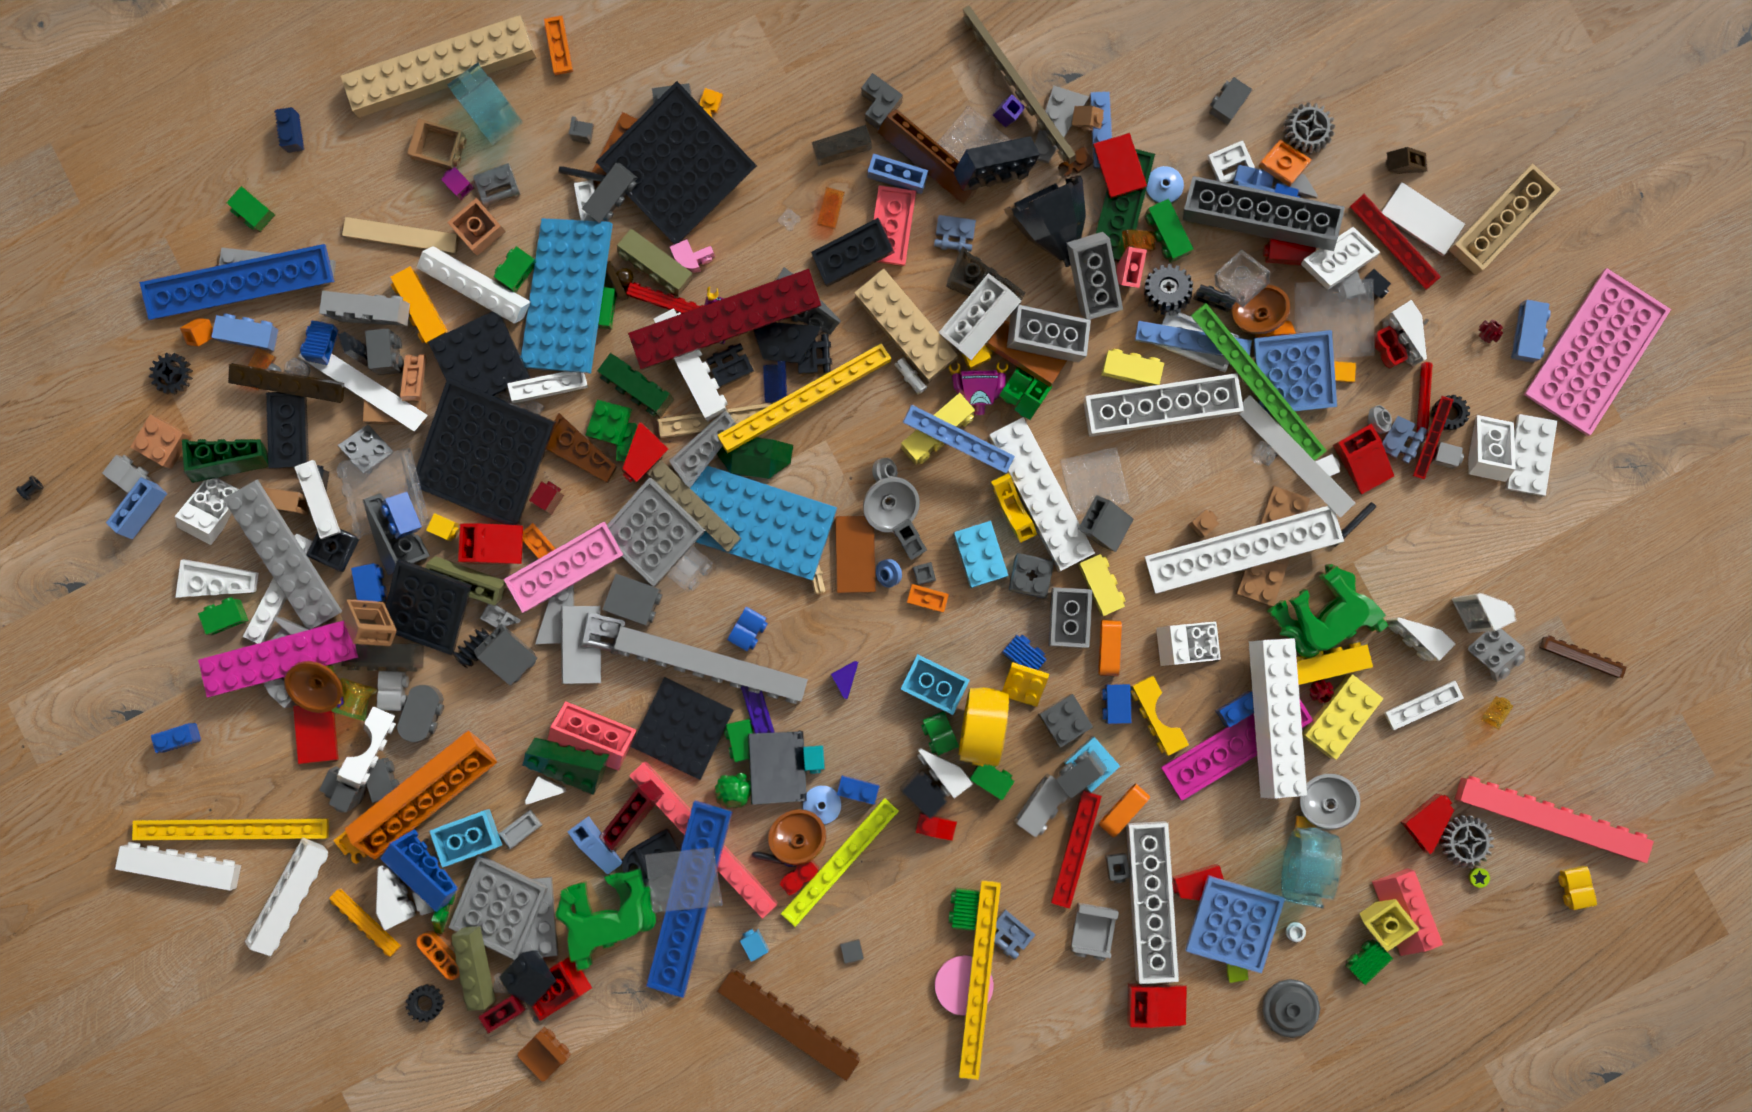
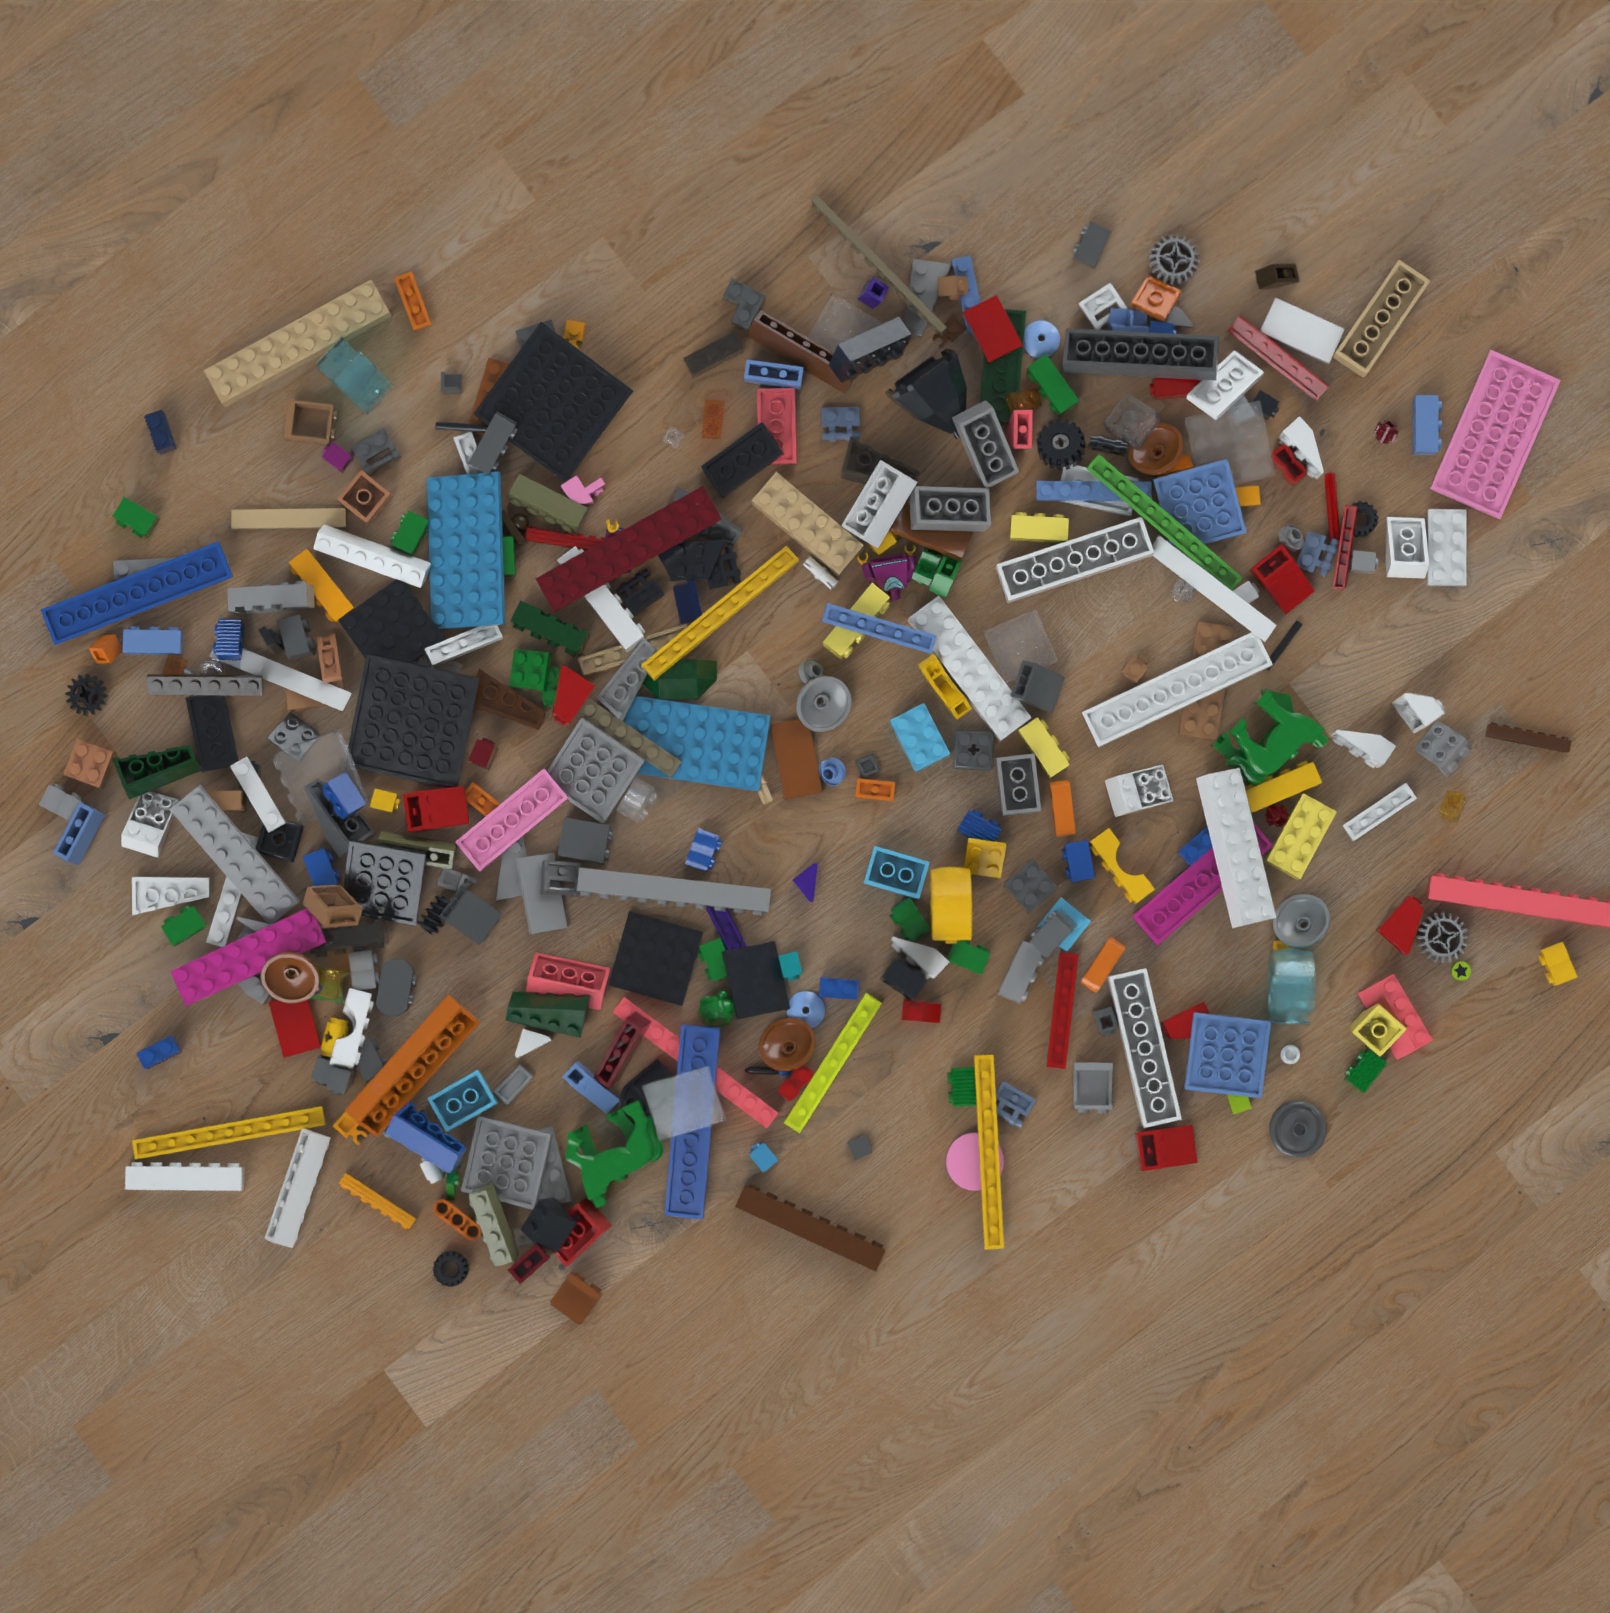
camera: 10 degrees left, 0 degrees up
(354, 744) = (337, 1028): none -> yellow piece
(392, 899) = (402, 1175): white slope -> none
(909, 539) = (847, 734): dark grey brick -> none

